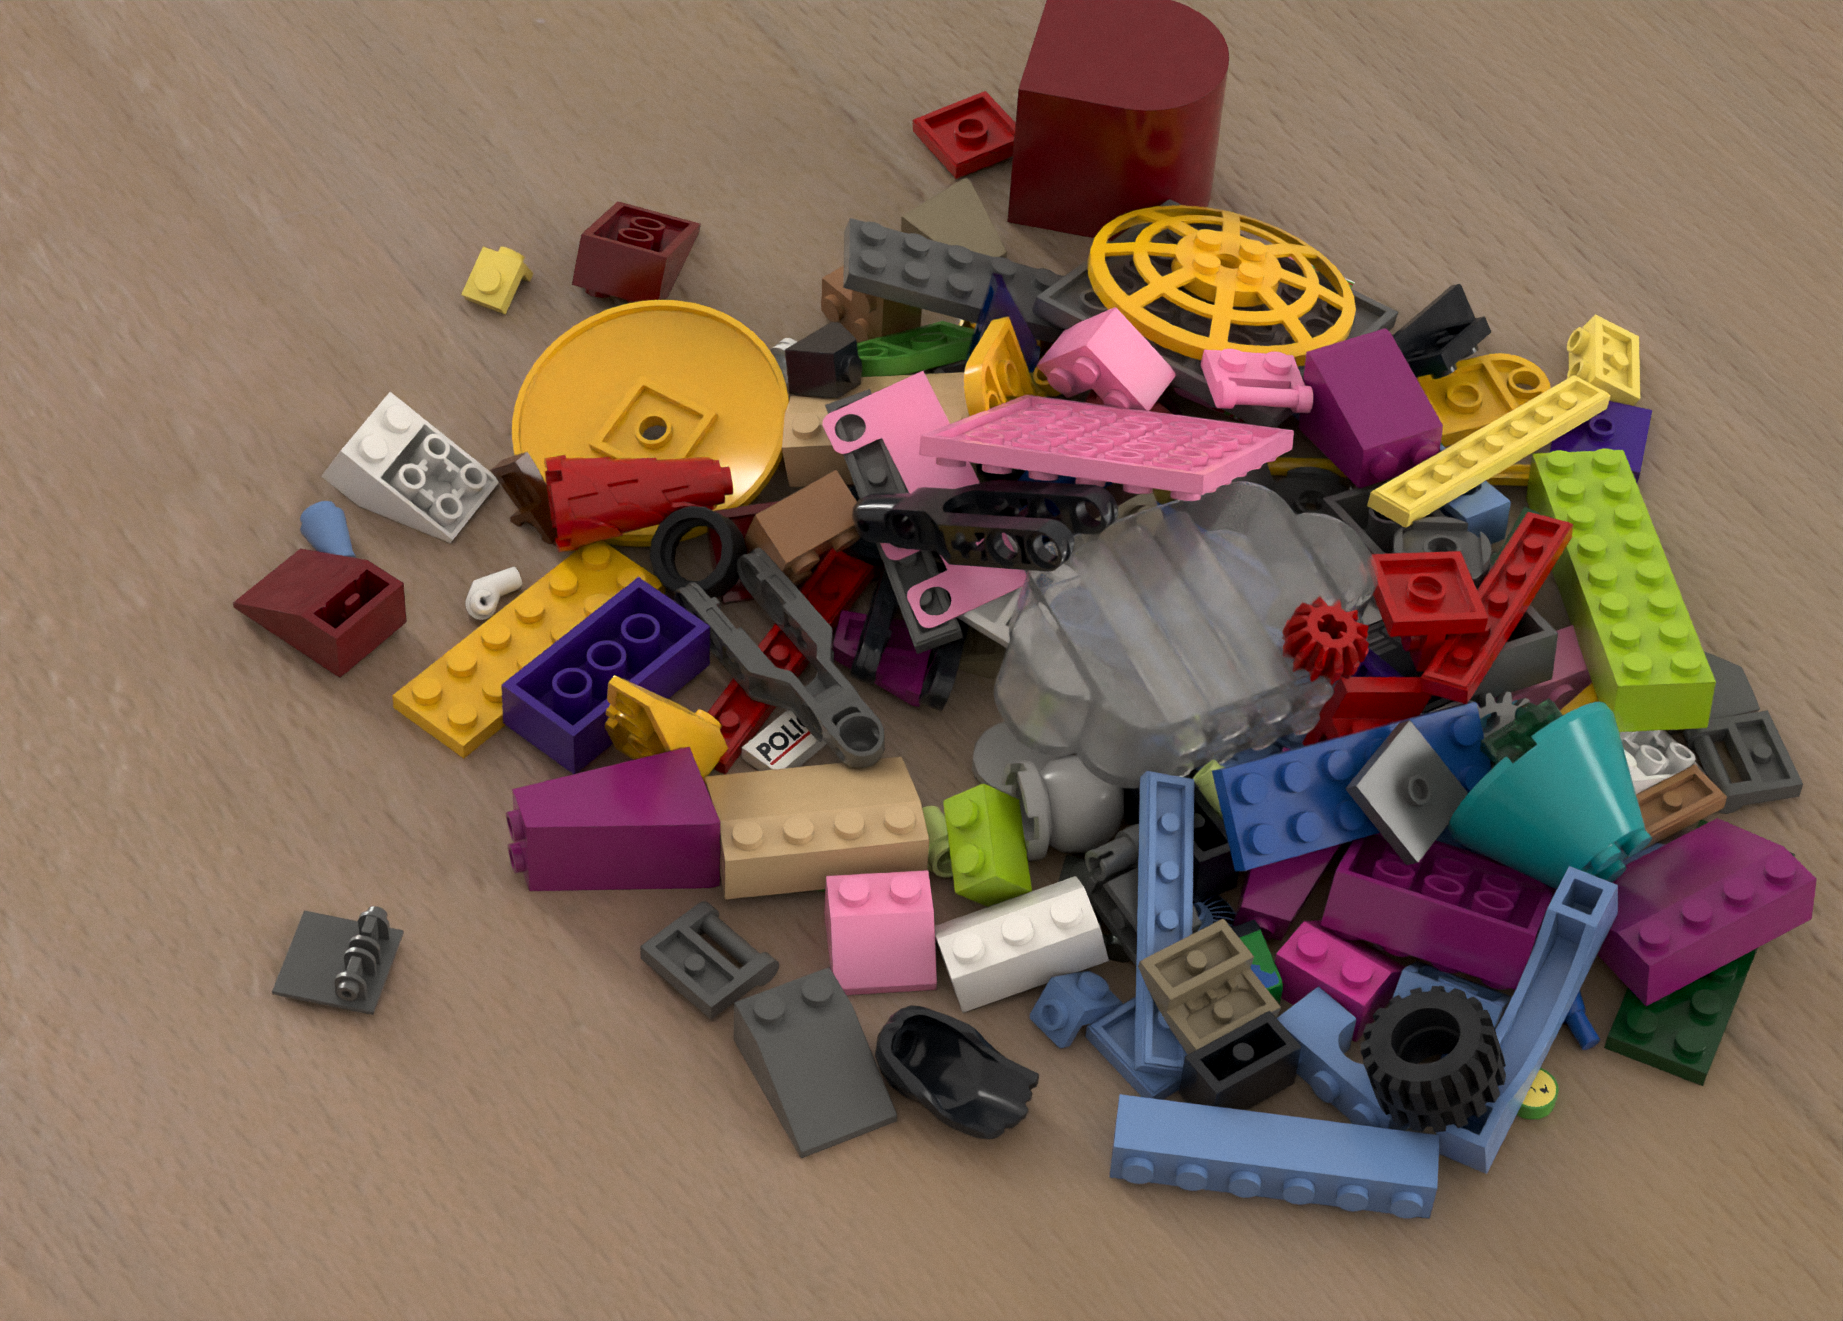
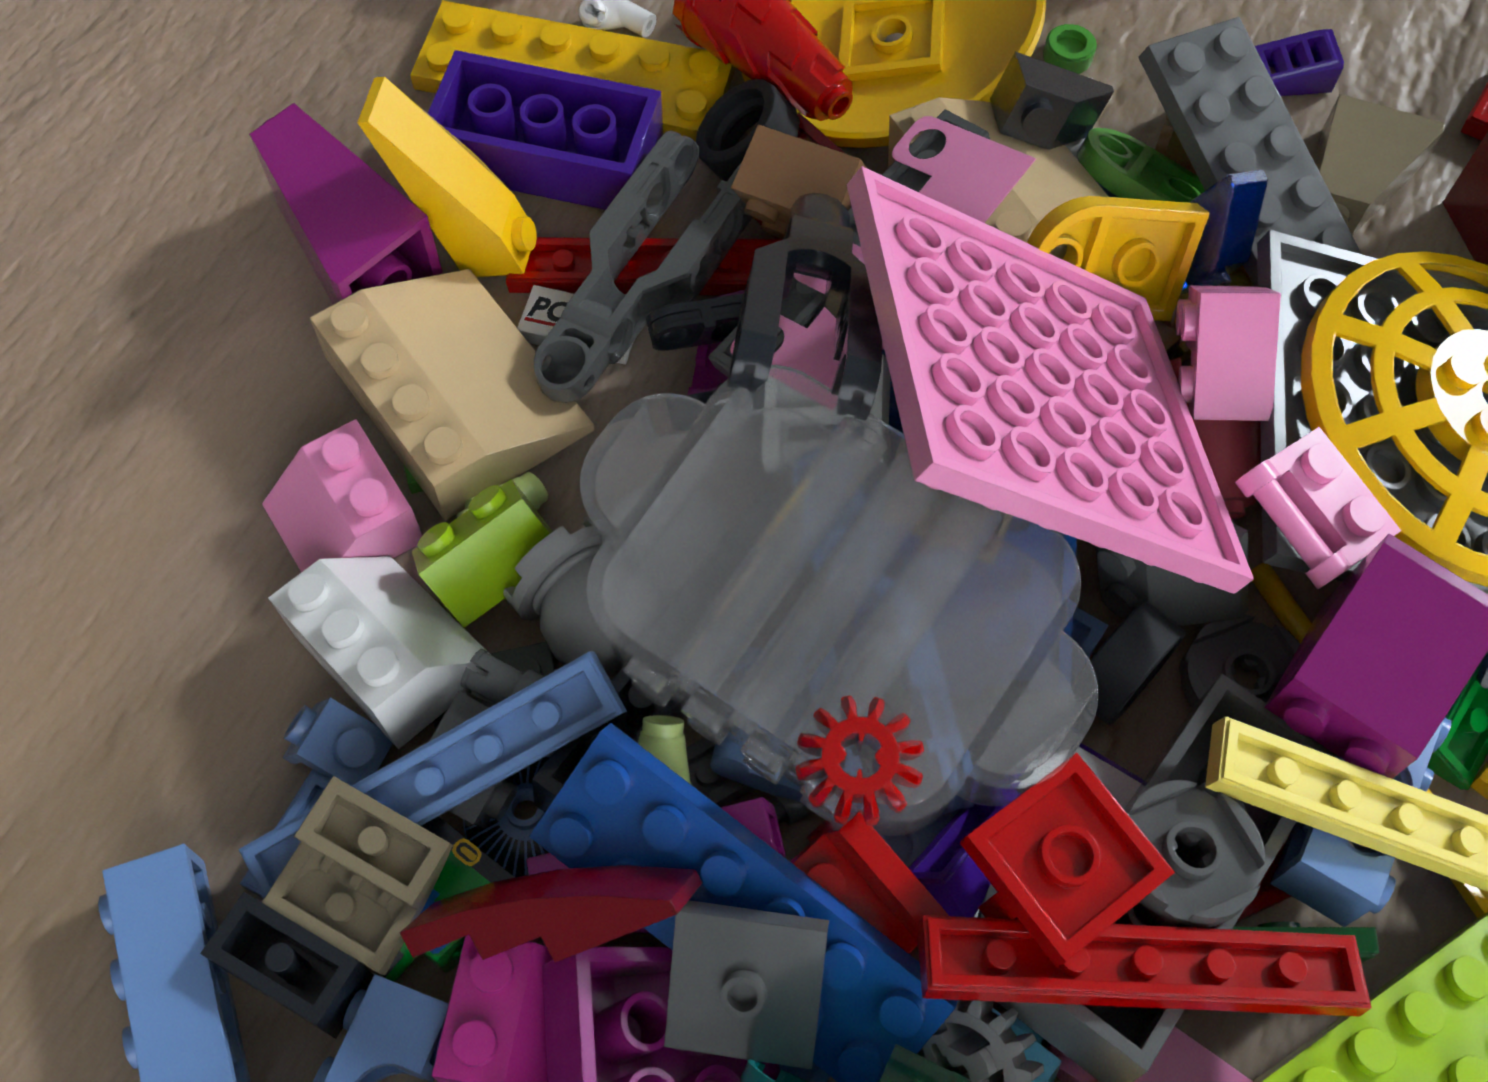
camera: 65 degrees right, 15 degrees up
(339, 960) = (111, 104): dark grey hinge -> none
(701, 970) = (227, 368): dark grey plate -> none
(813, 1062) = (139, 524): dark grey slope -> none
(837, 212) = (1316, 59): none -> dark purple slope
(953, 1072) = (165, 660): black hair -> none
(1314, 852) = (562, 906): none -> dark red slope

